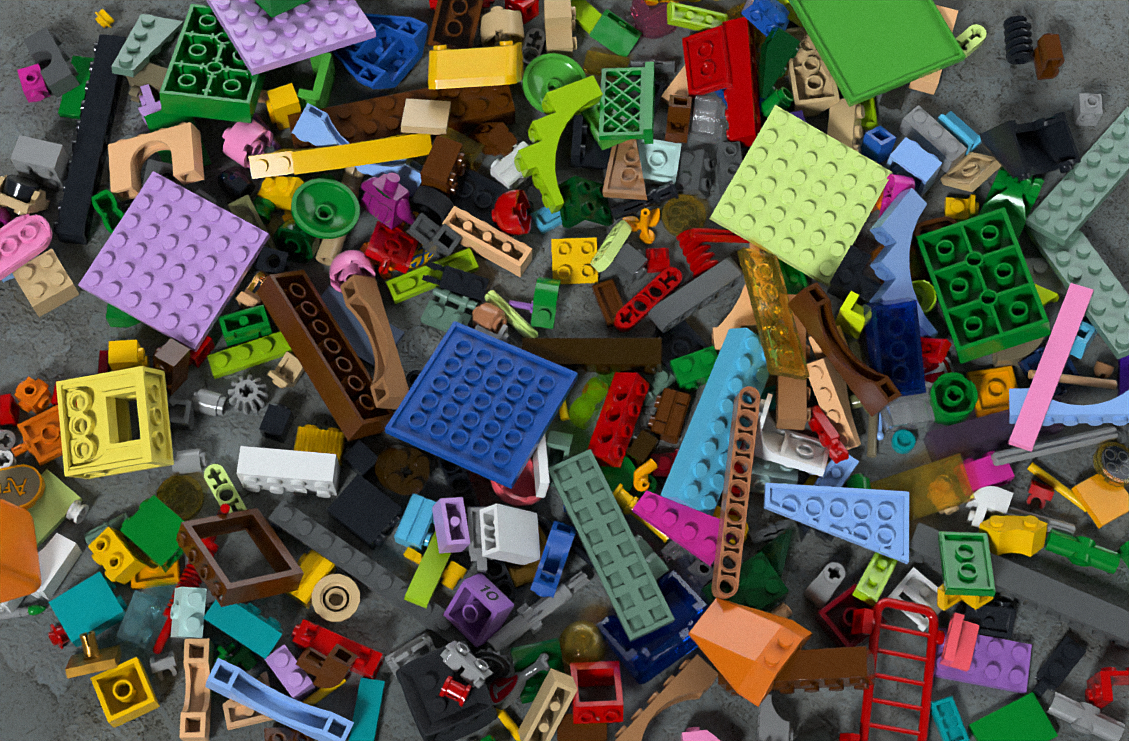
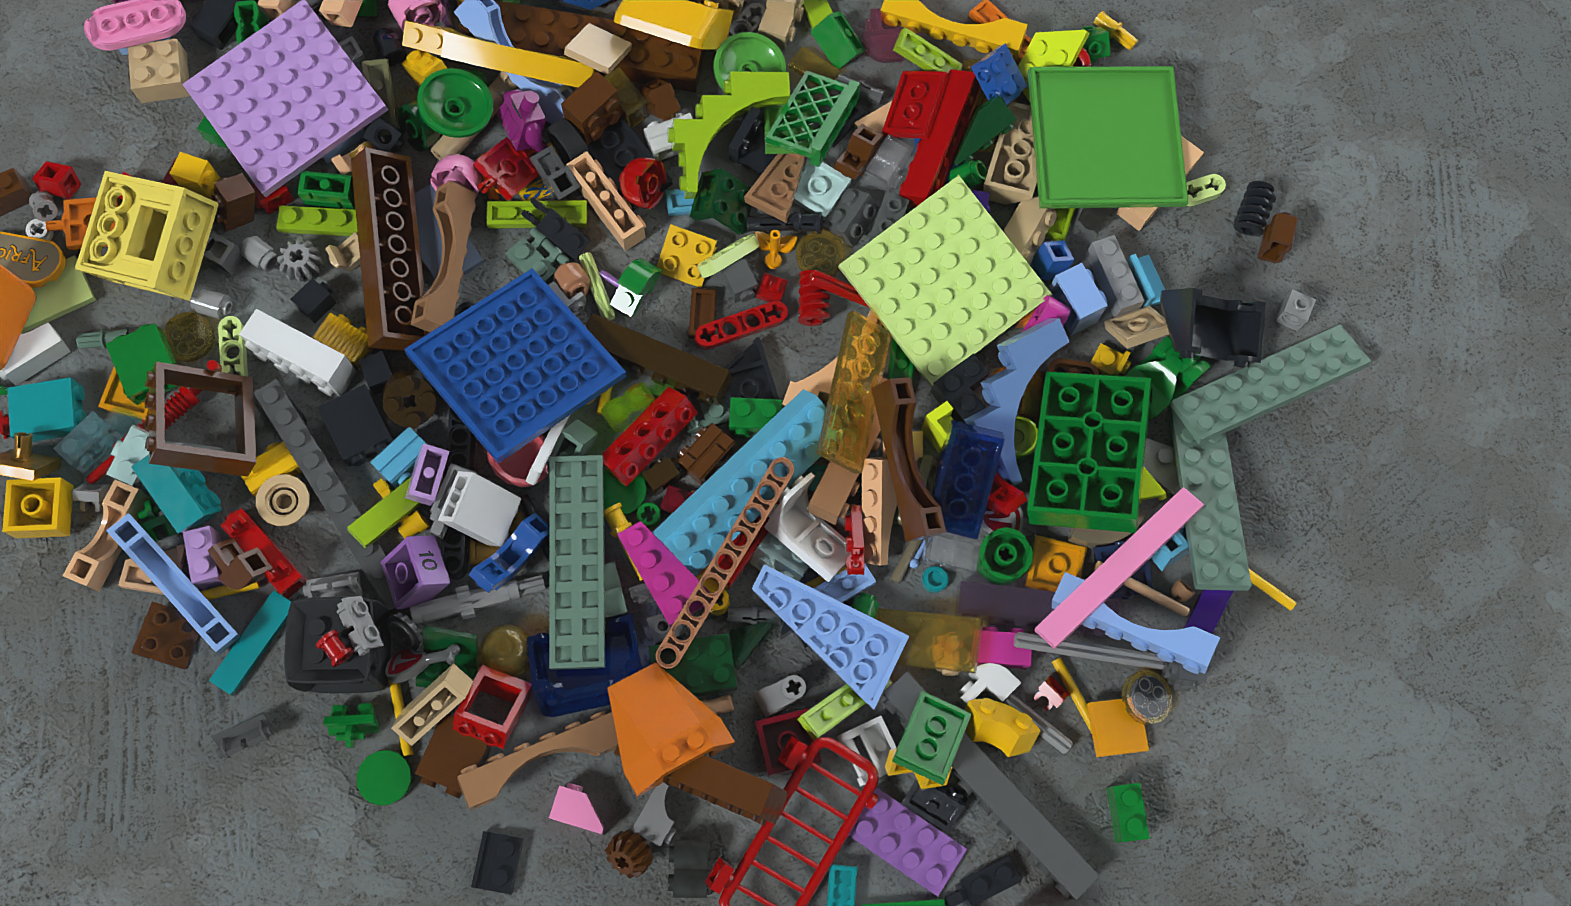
camera: 20 degrees right, 5 degrees up
(33, 395) = (90, 175): orange brick -> none
(77, 511) = (82, 309): white bush -> none
(116, 556) = (94, 369): yellow brick -> none
(264, 209) = (402, 82): green wheel -> none
(640, 475) = (646, 503): light orange arm -> none
(696, 294) = (787, 340): dark grey beam -> none
(959, 643) = (890, 816): coral panel -> none
(1082, 551) = (1067, 774): green piece -> none

